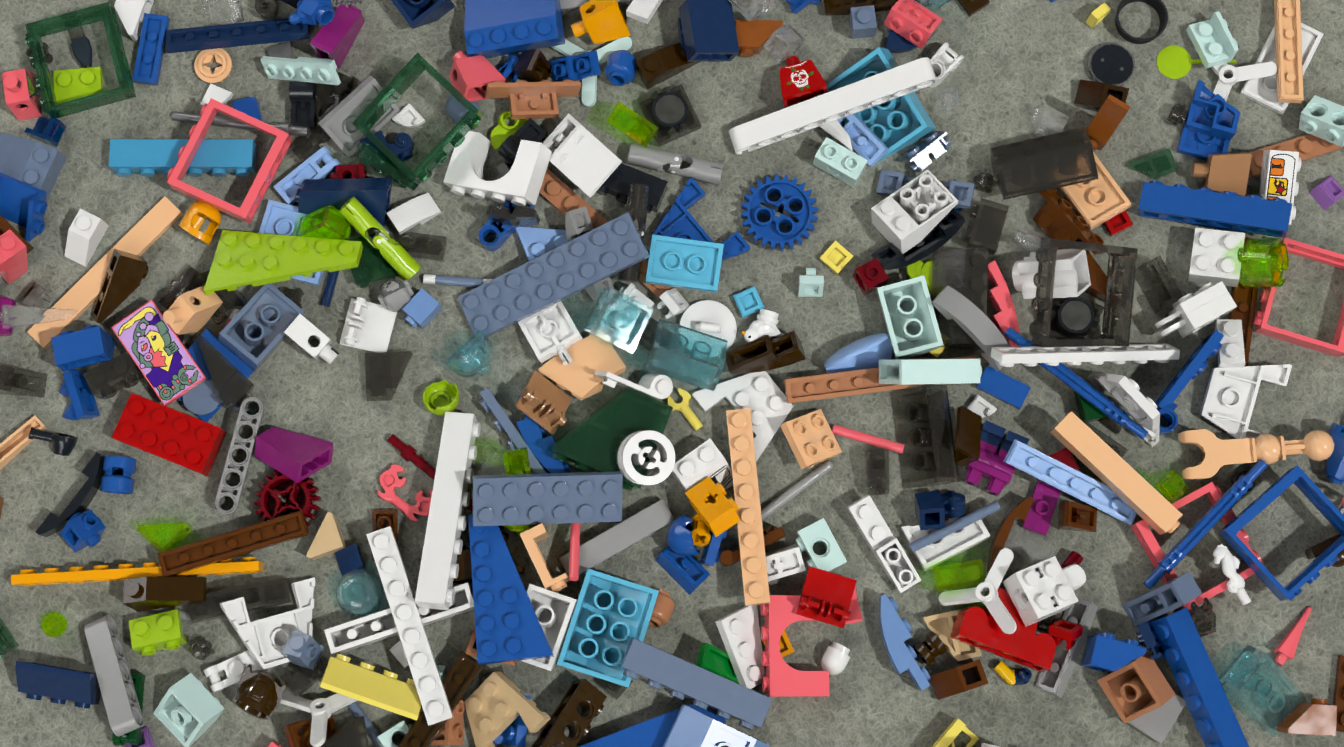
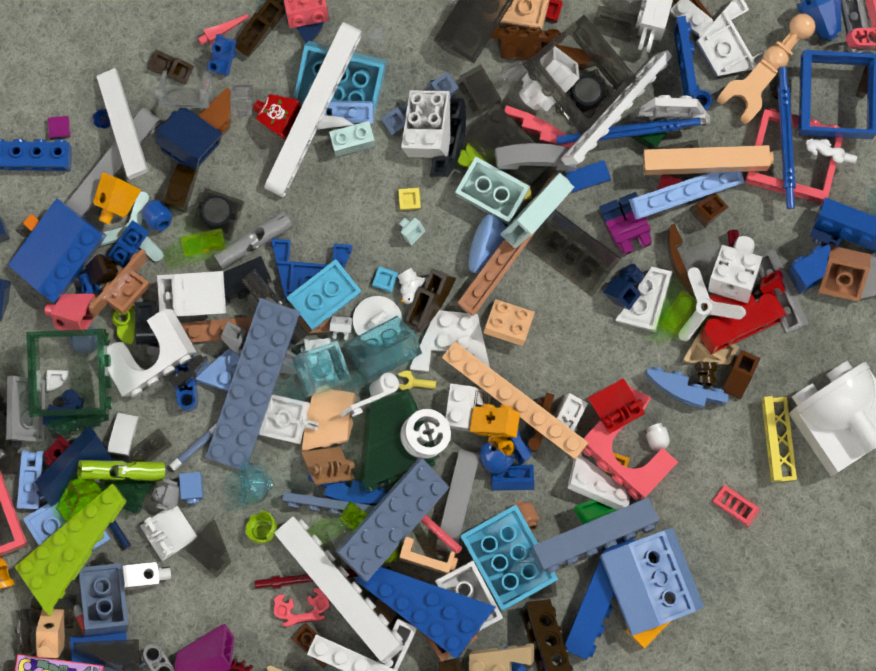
camera: 50 degrees left, 0 degrees up
(788, 194) = (354, 223): blue gear -> none
(795, 490) = (530, 362): light grey piece -> none
(820, 533) = (572, 372): light aqua brick -> none
(862, 22) = (276, 39): sand blue brick -> none
(868, 439) = (542, 288): coral bar -> none
(870, 276) = (442, 189): dark red brick -> none
(877, 471) = (567, 301): clear smoke leg -> none
(883, 544) = (615, 341): white slope -> none
(933, 144) = (396, 70): hinge -> none
(945, 62) = (351, 13): white piece -> none
(954, 526) = (646, 287): sand blue bar -> none
(967, 436) = (599, 227): dark brown panel -> none
(981, 407) = (587, 203): white tile -> none
(986, 180) = (450, 62): clear smoke plate -> none
(1013, 676) = (769, 340): arm -> none
(1042, 508) = (685, 225): magenta plate -> none
(1162, 599) = (807, 207): sand blue slope -> none
(1172, 486) = (745, 135): clear neon green slope -> none
(1204, 618) = (840, 193): clear smoke plate -> none

